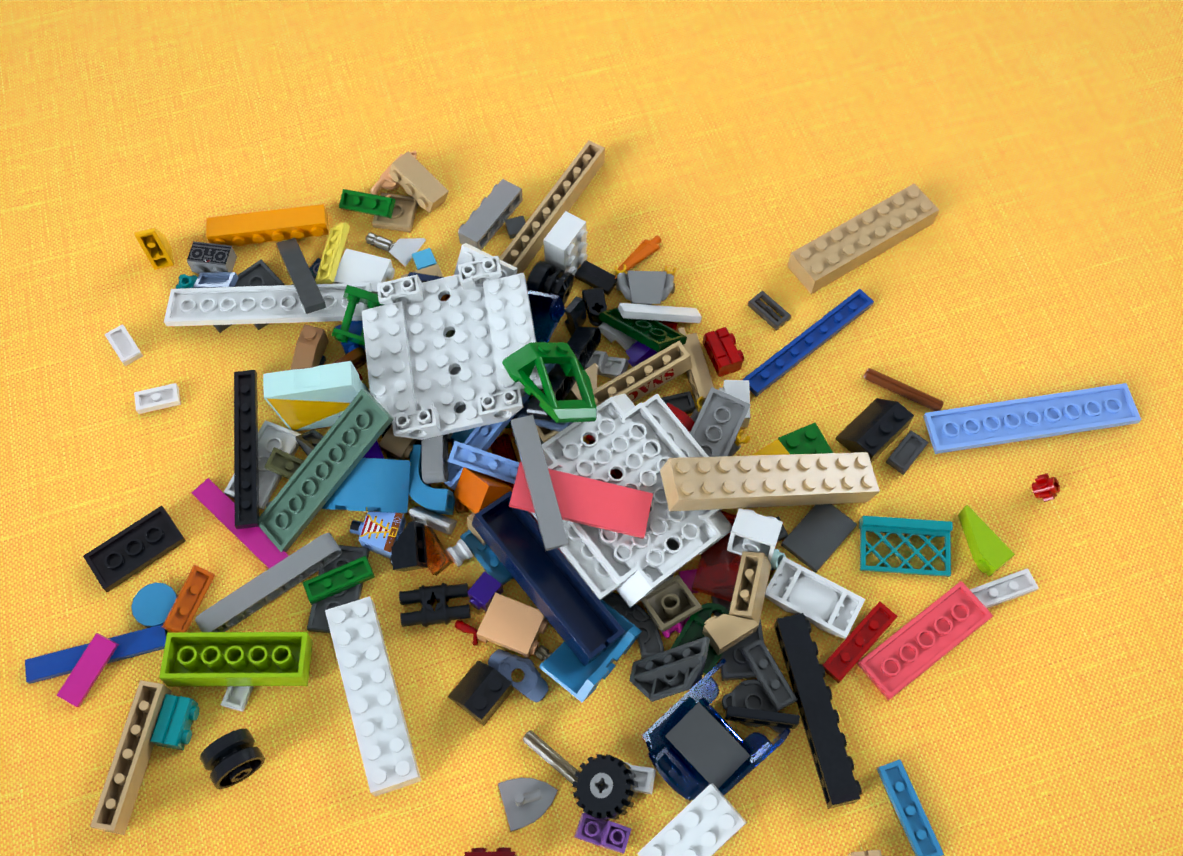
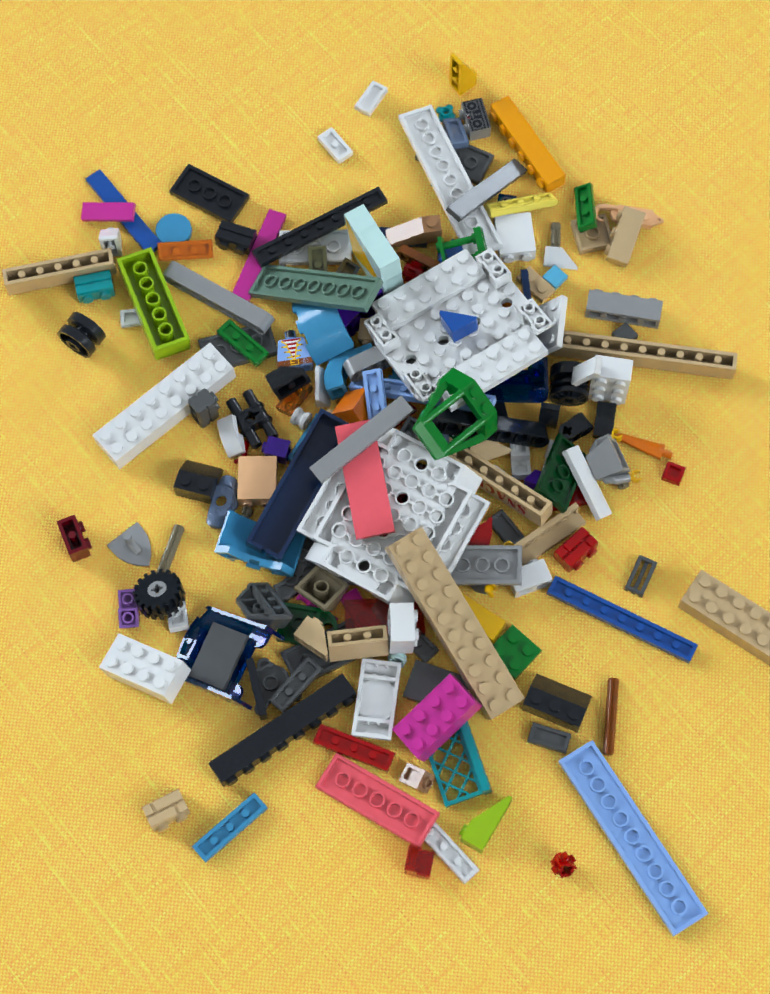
camera: 70 degrees right, 5 degrees up
(127, 678) = (111, 239): none -> white slope
(206, 539) = (235, 237): none -> black brick
(399, 649) = (204, 407): none -> dark grey brick
(445, 635) = (231, 439): none -> white slope
(448, 345) = (458, 324): none -> blue slope
(556, 253) = (586, 371): none -> white tile
(676, 244) = (673, 473): none -> red tile
(862, 541) = (437, 717): none -> dark pink brick
(912, 591) = (417, 778): none -> bracket
(1005, 624) = (418, 862): none -> clear red piece

